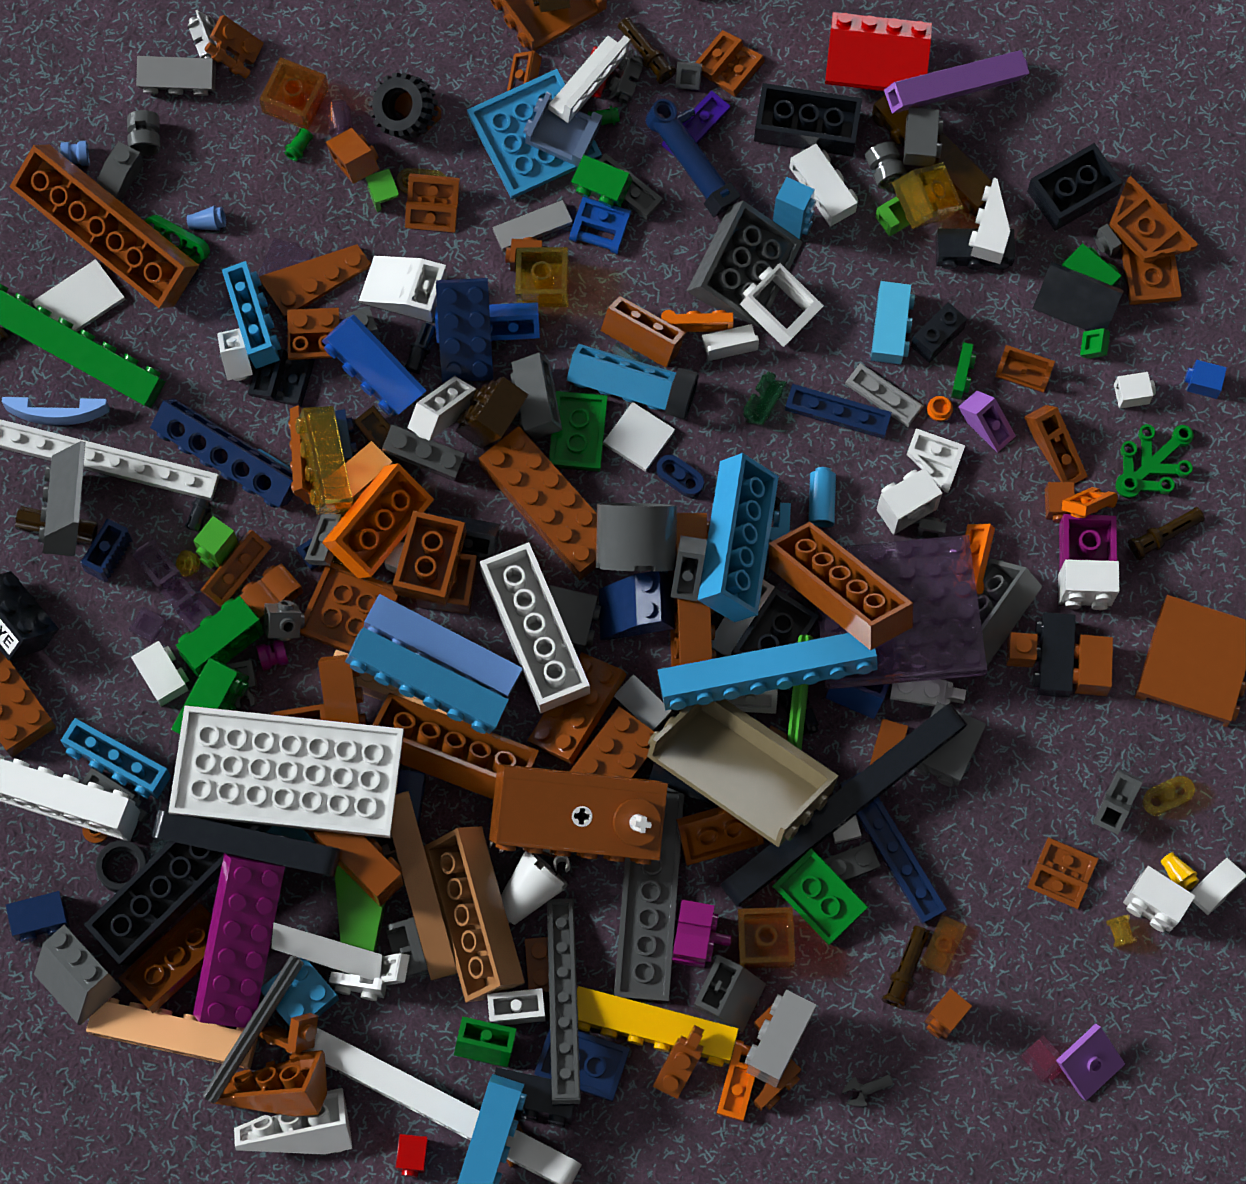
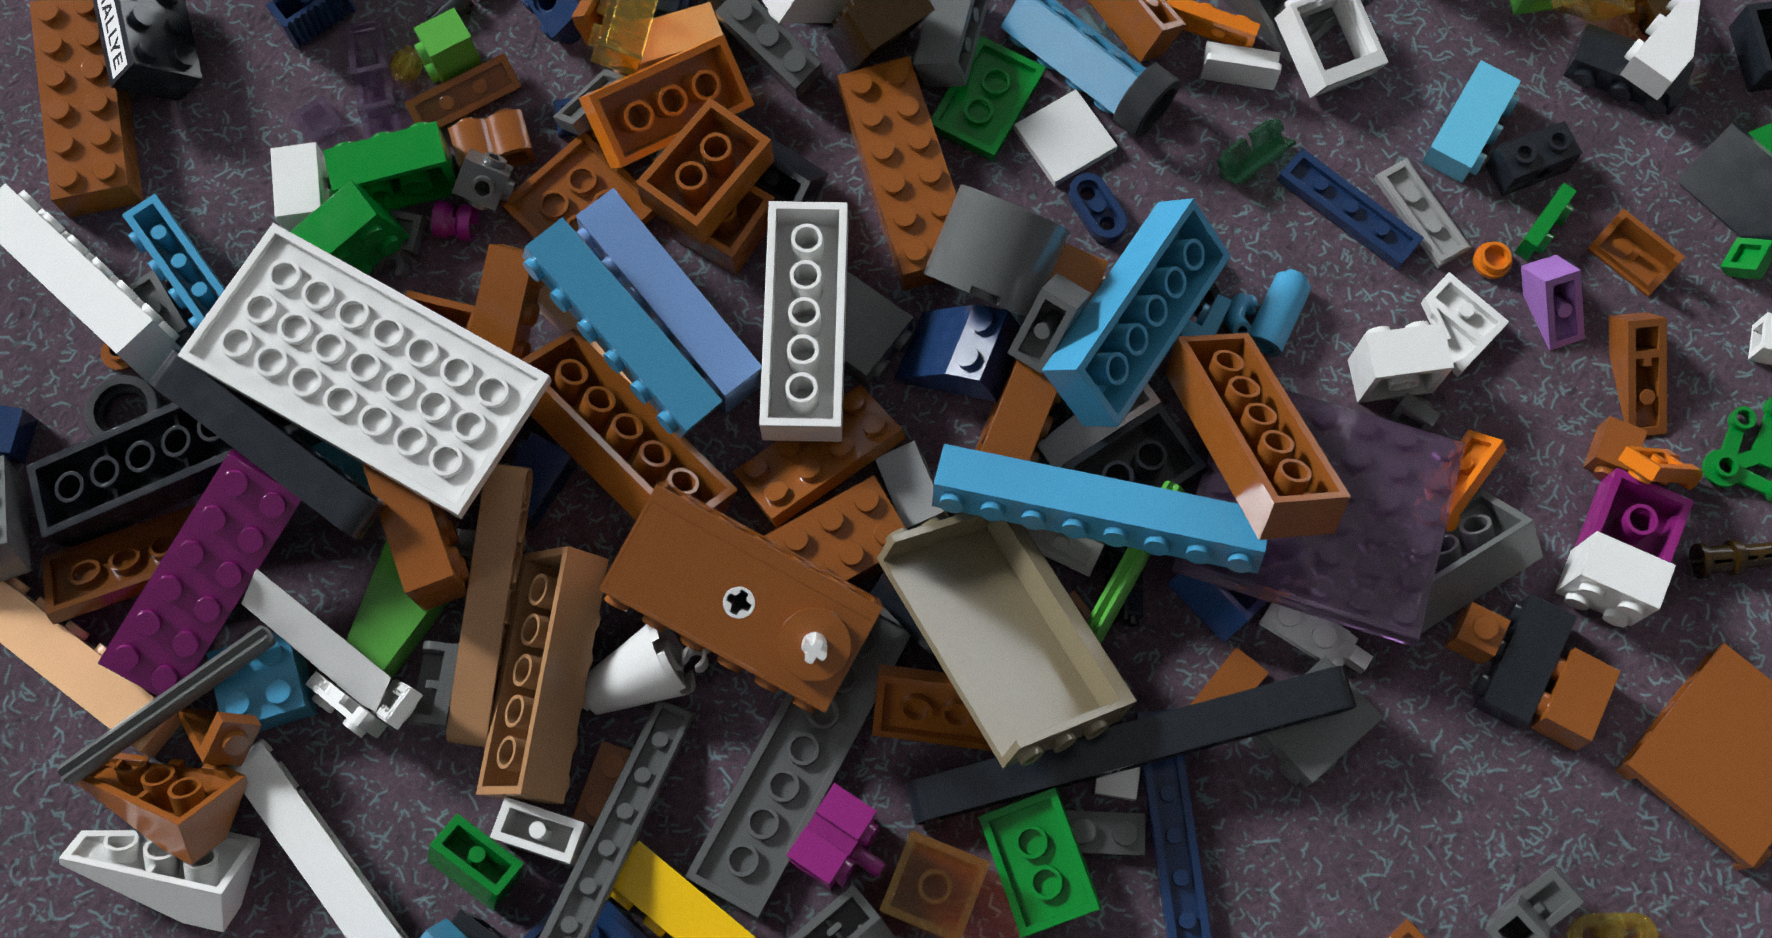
camera: 25 degrees right, 0 degrees up
(796, 512) = (1239, 307): none -> dark azure arm

